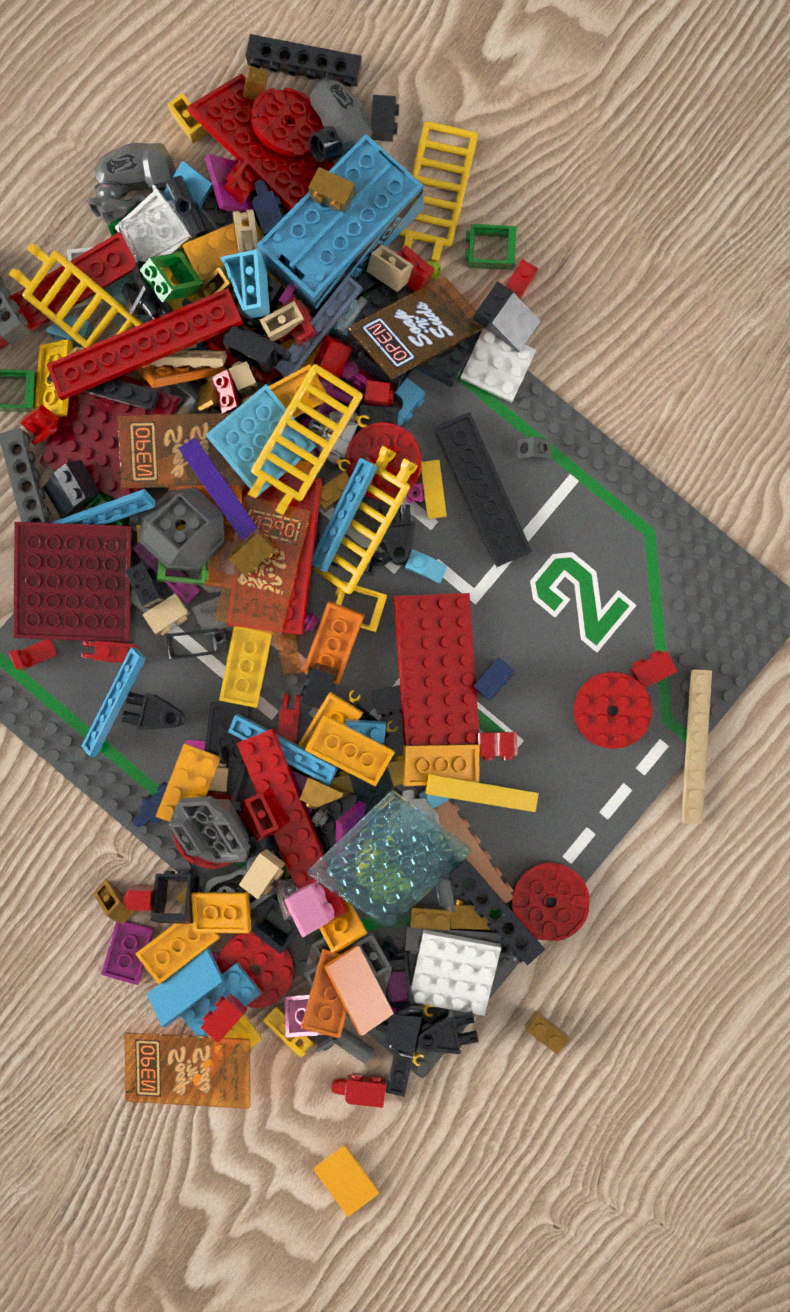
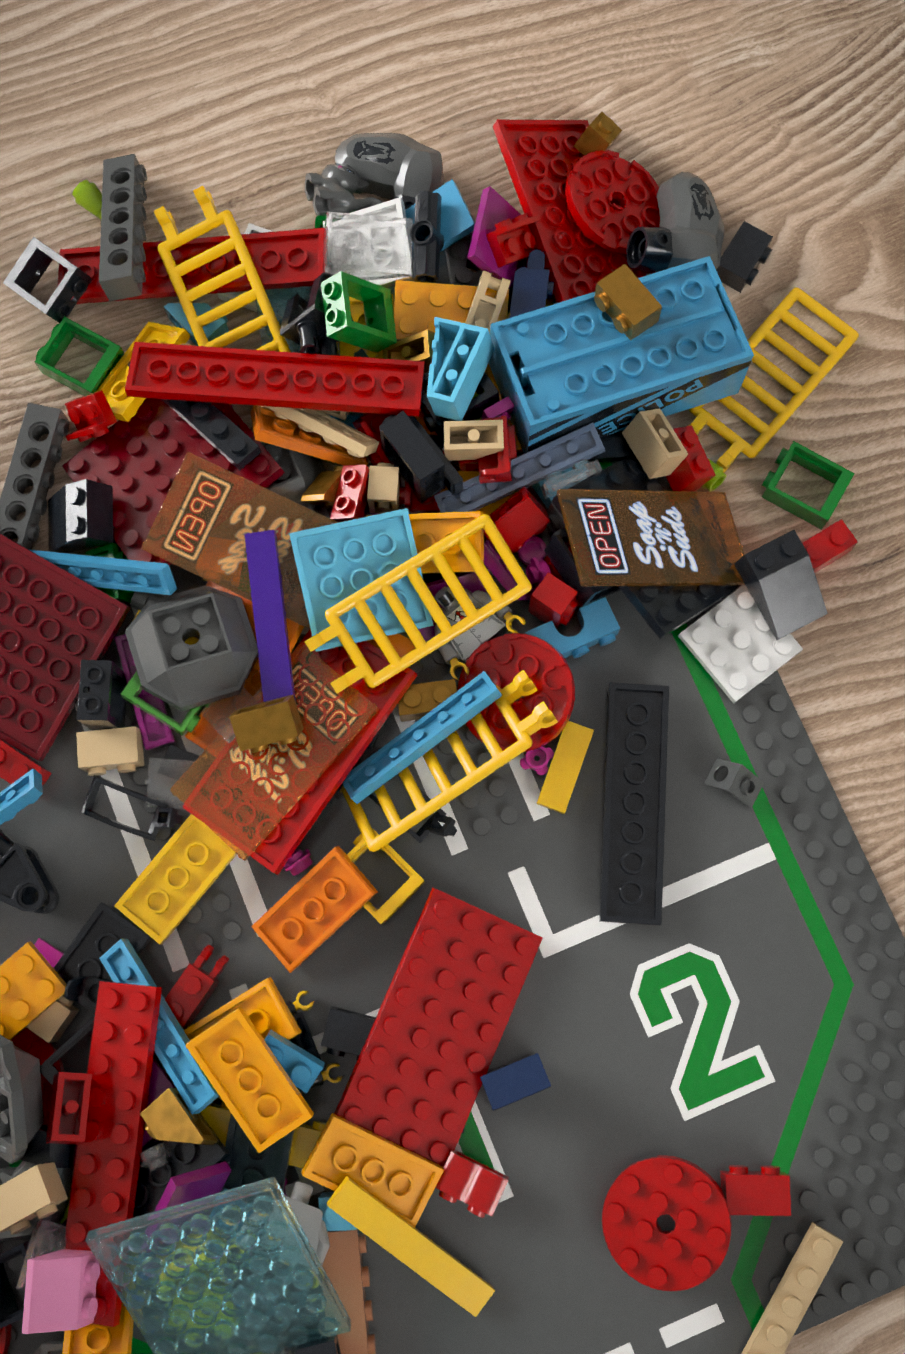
camera: 30 degrees right, 10 degrees down
(191, 127) = (487, 147): yellow brick -> none
(289, 654) = (245, 892): clear orange slope -> none
(298, 52) = (671, 128): black brick -> none
(319, 685) = (262, 958): black brick -> none
(378, 414) = (541, 626): black bracket -> none
(399, 535) = (485, 805): black piece -> none
(425, 566) = (499, 868): medium azure slope -> none

